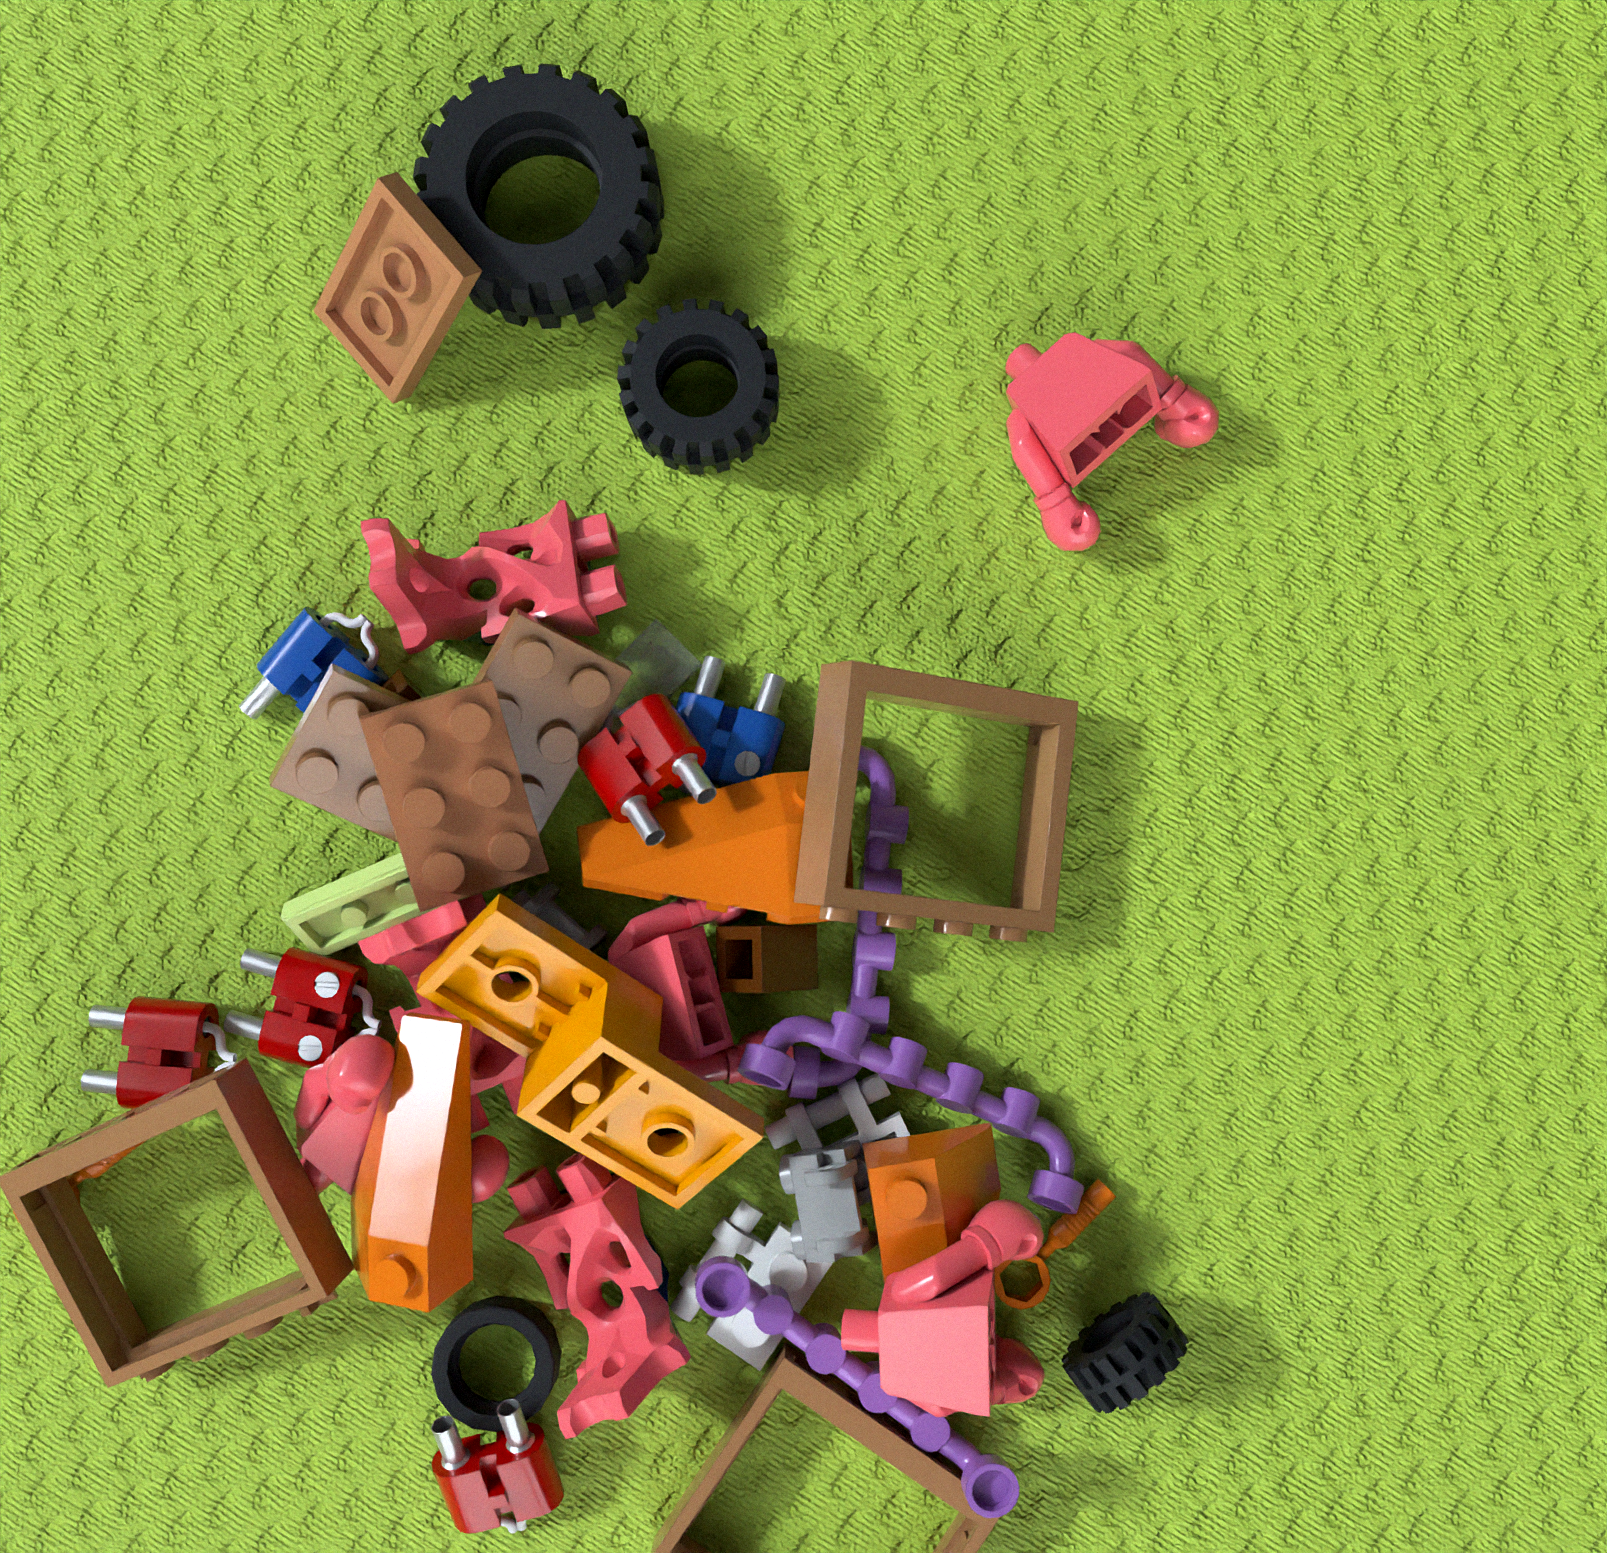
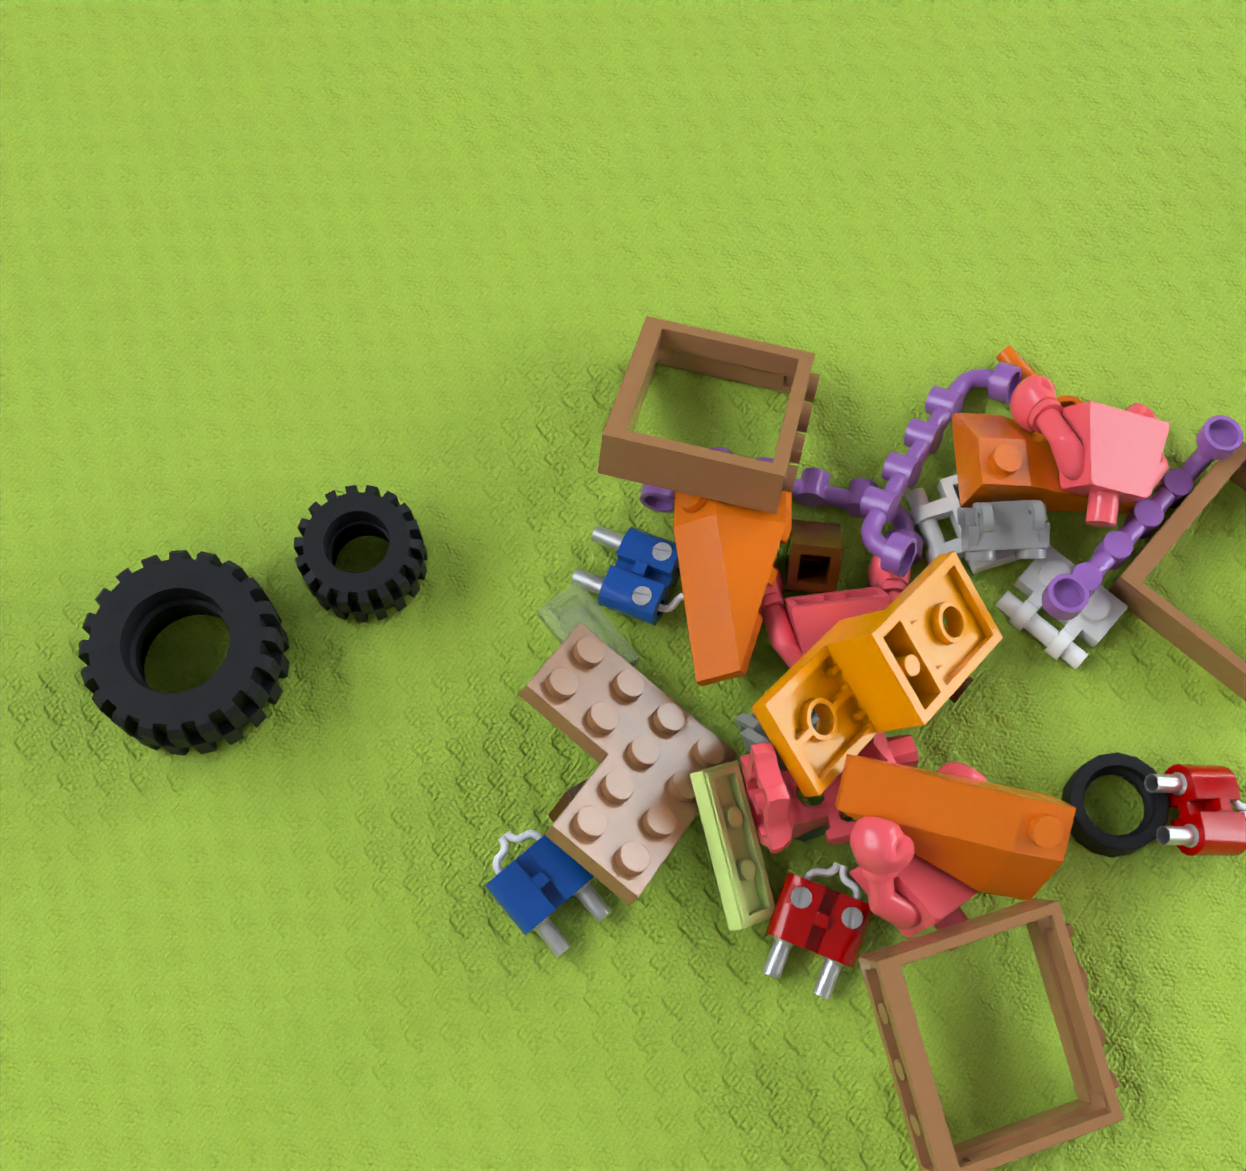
camera: 80 degrees left, 15 degrees down
(166, 1048) = (841, 1050): red piece -> none
(396, 288) = (239, 767): nougat plate -> none
(454, 794) = (662, 754): nougat plate -> none
(556, 584) = (495, 684): coral hips -> none
(604, 1234) = (1021, 698): coral hips -> none
(641, 760) = (651, 622): red piece -> none
(1079, 409) = (431, 291): coral torso -> none
(1125, 1353) = (1125, 344): black tyre -> none

